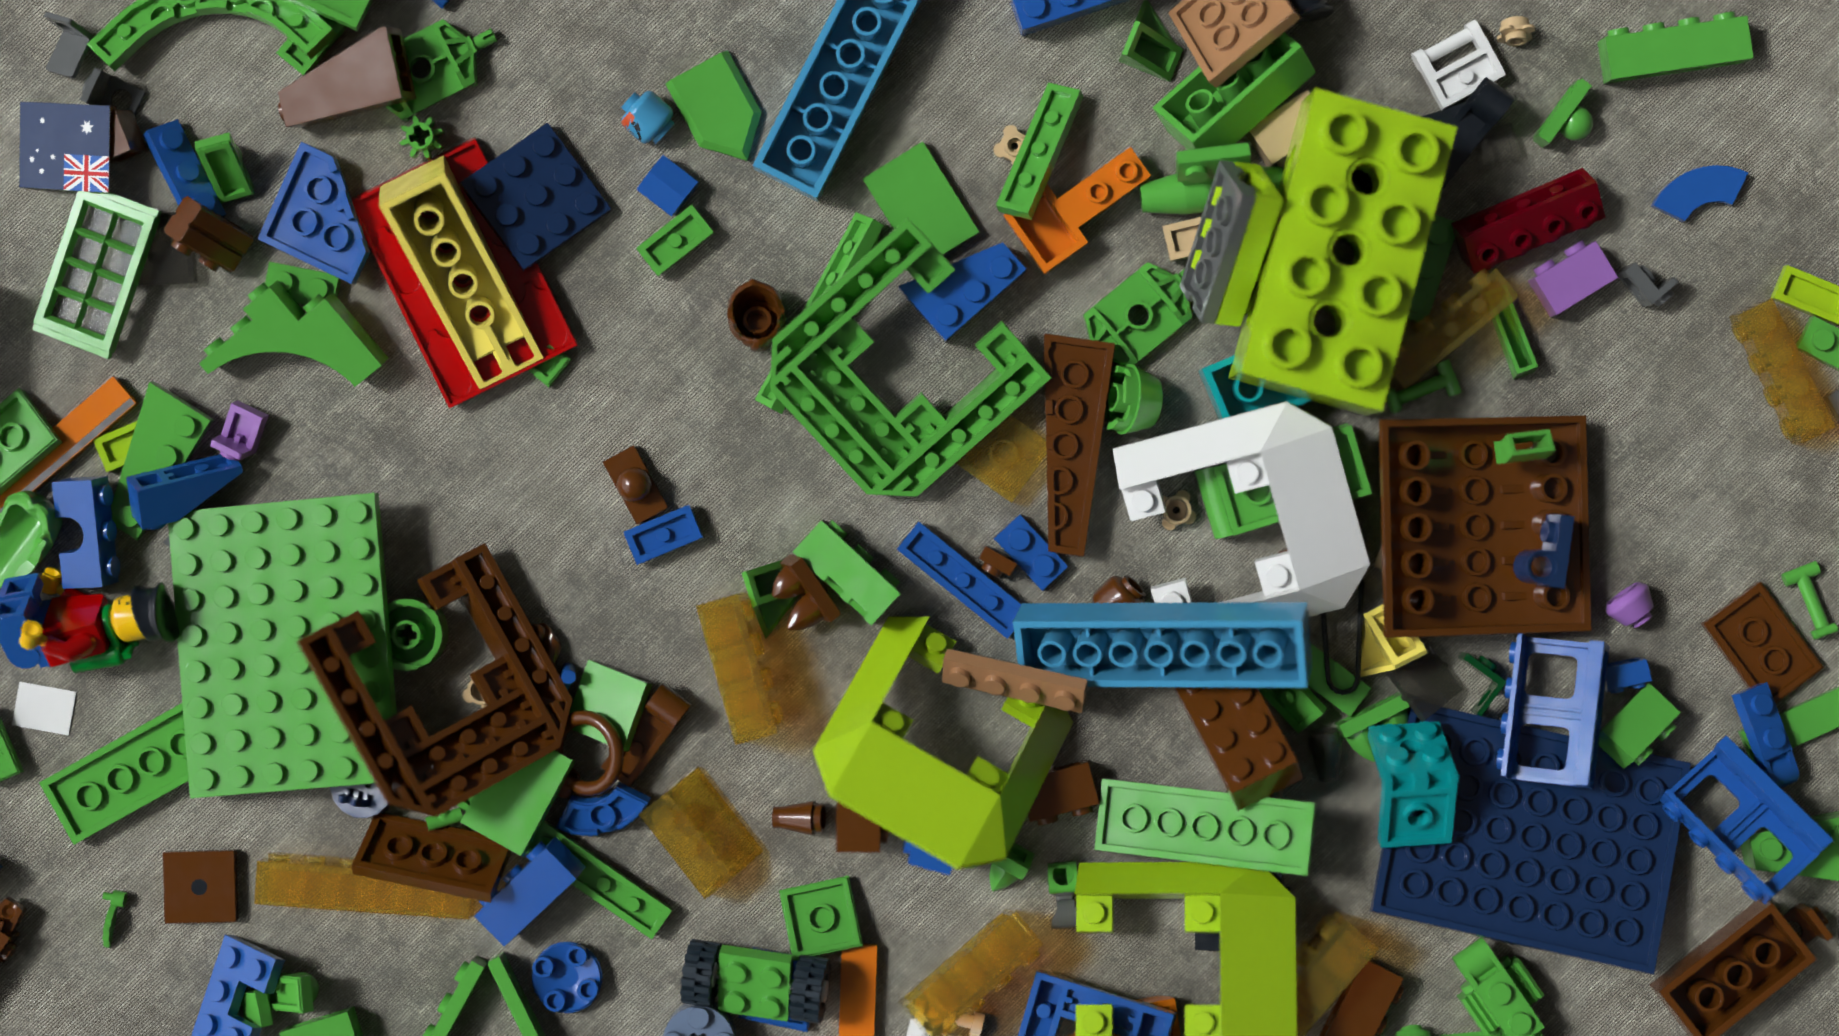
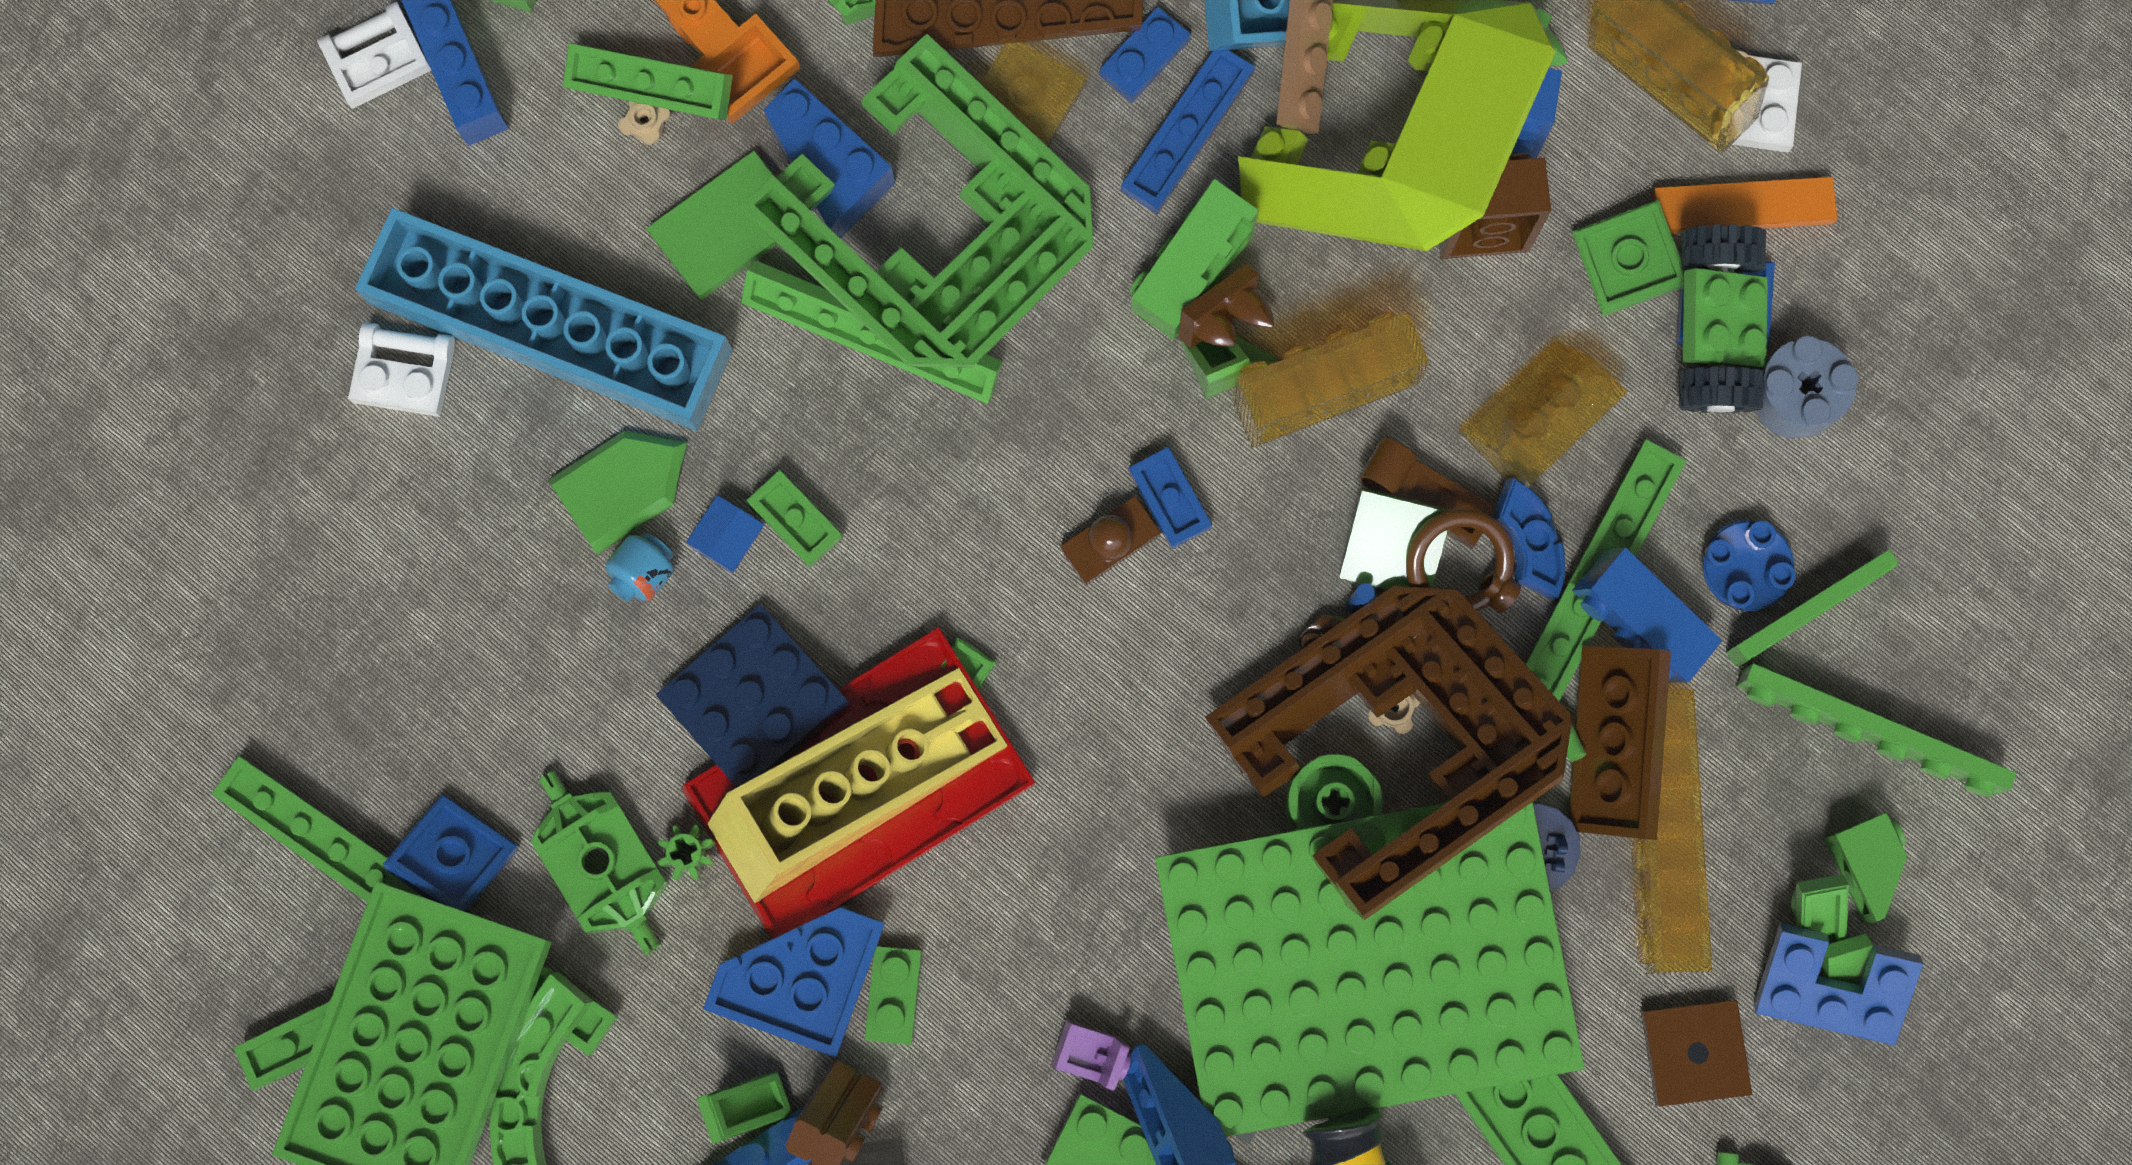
camera: 90 degrees left, 10 degrees down
(280, 325) = (948, 1013): bright green arch -> none
(355, 81) = (619, 943): slope -> none
(518, 804) = (1544, 636): bright green tile -> none
(756, 314) = (879, 406): reddish brown hair -> none
(801, 817) = (1507, 294): reddish brown cone -> none
(996, 563) = (1161, 90): reddish brown plate -> none

